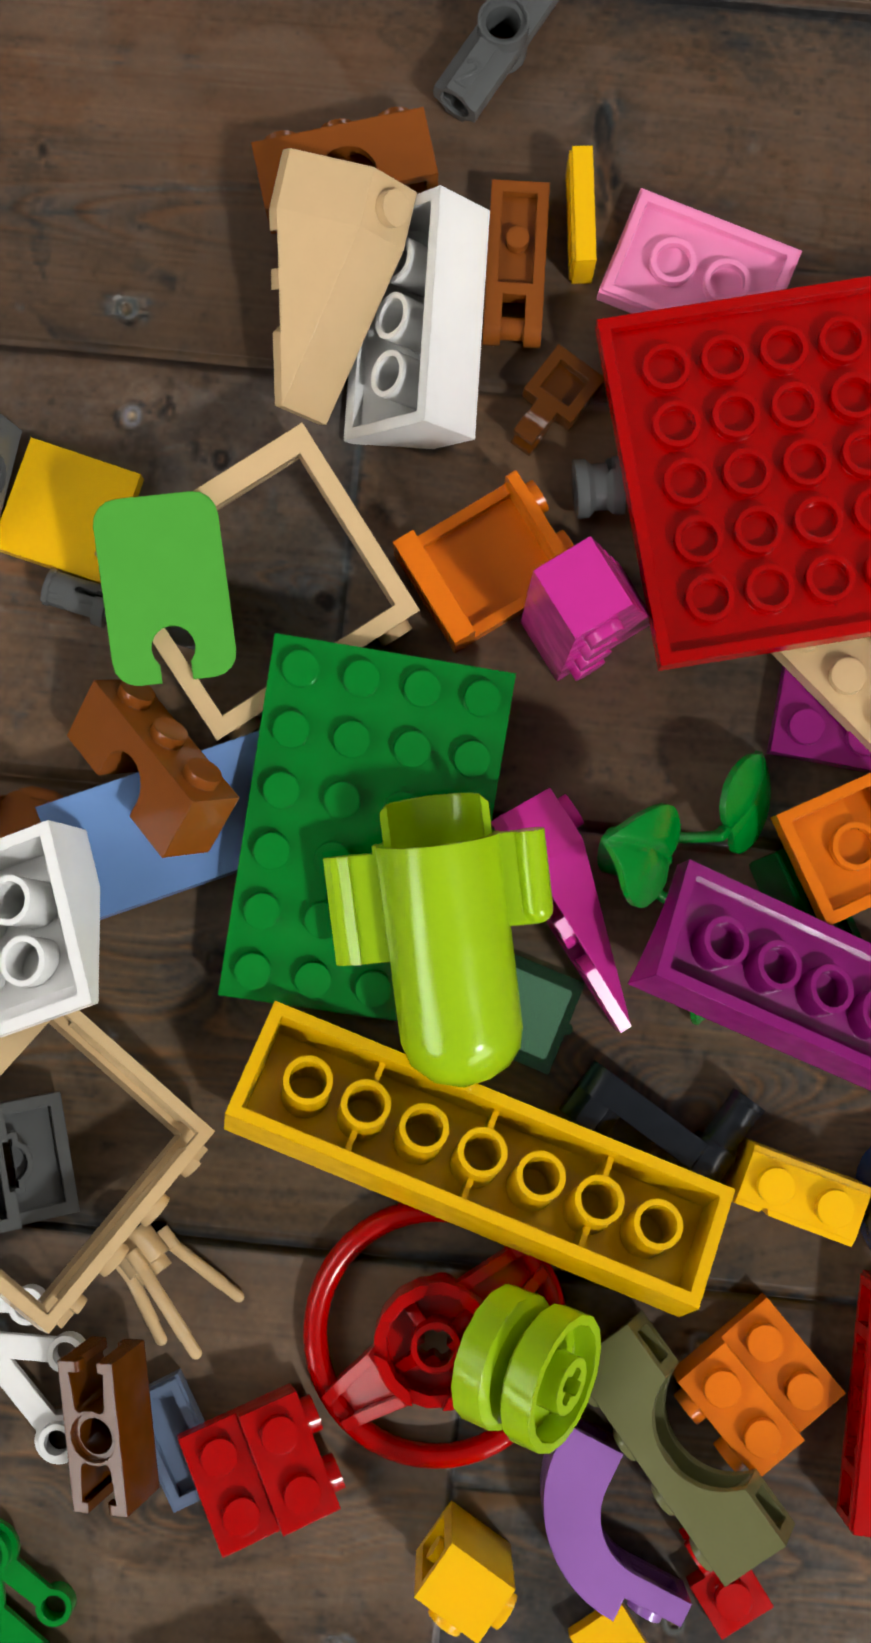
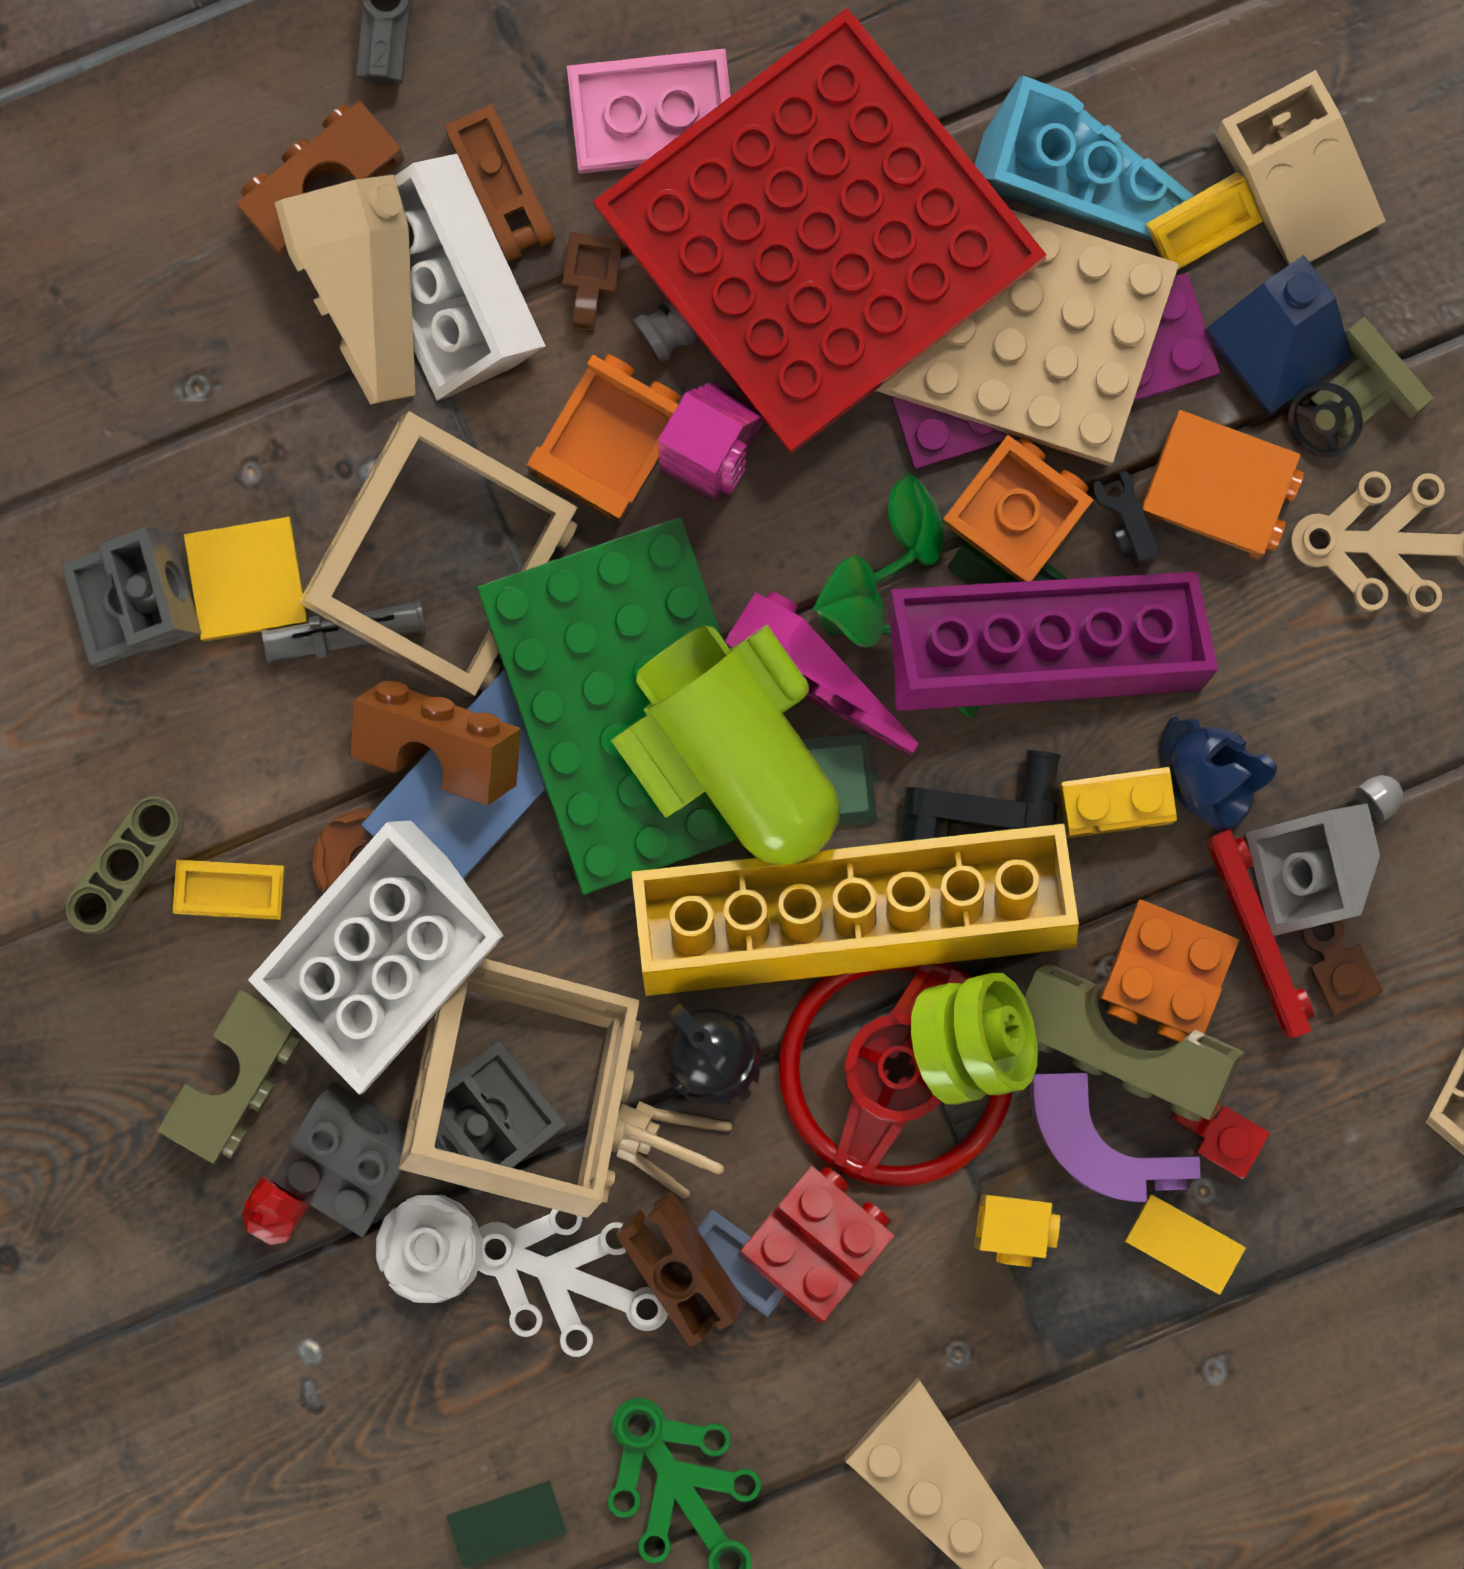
camera: 35 degrees left, 0 degrees up
(163, 570) = (365, 584): bright green piece -> none
(257, 1224) = (711, 1056): none -> black helmet
(580, 215) = (531, 116): yellow tile -> none

